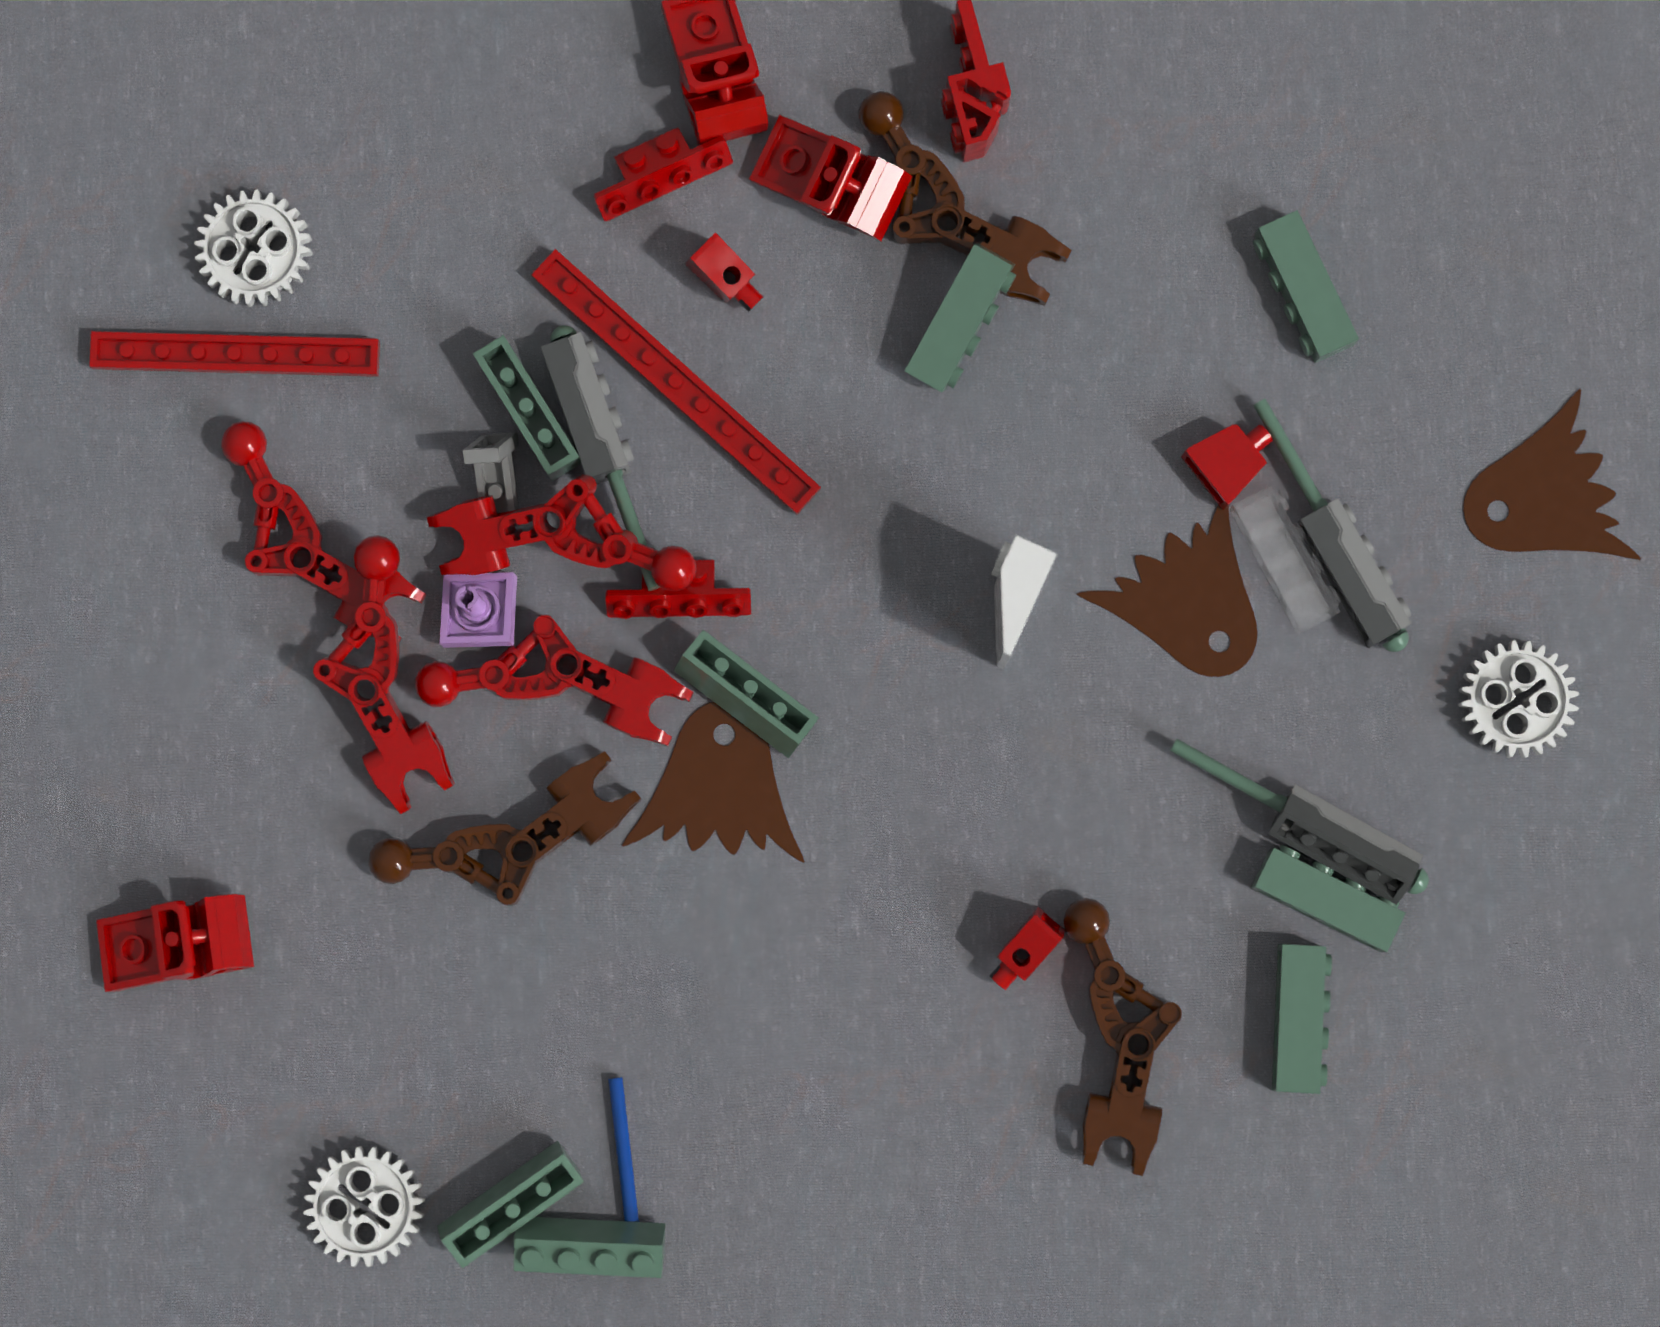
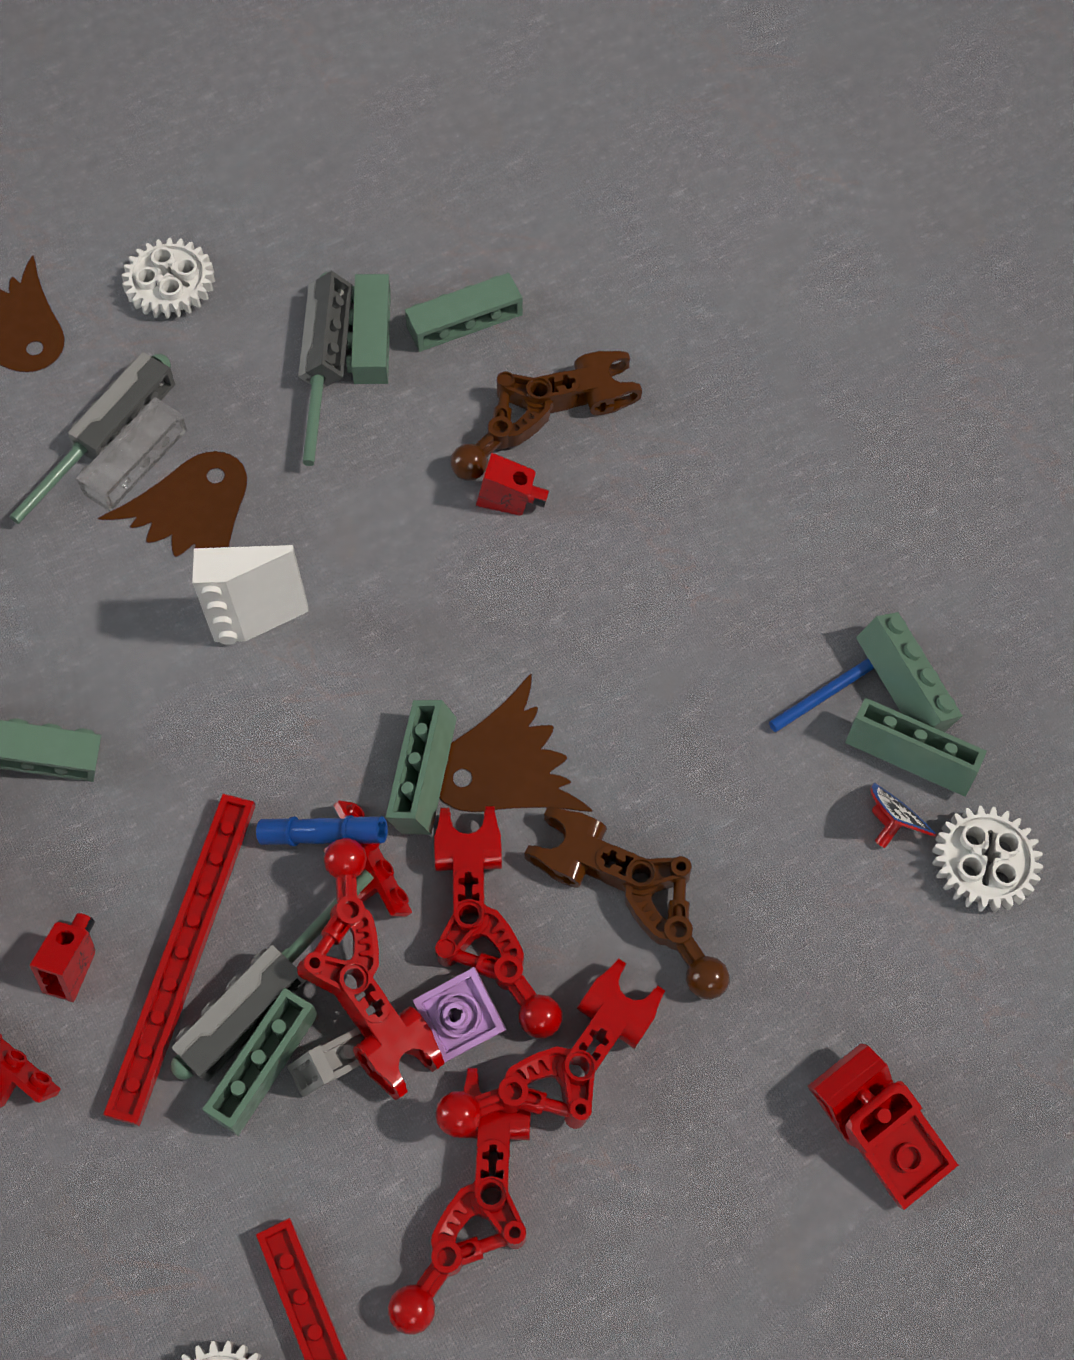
camera: 120 degrees left, 20 degrees down
(454, 1143) = (894, 815): none -> shield
(724, 563) = (321, 830): none -> blue piece
(1228, 461) = (72, 519): red torso -> none

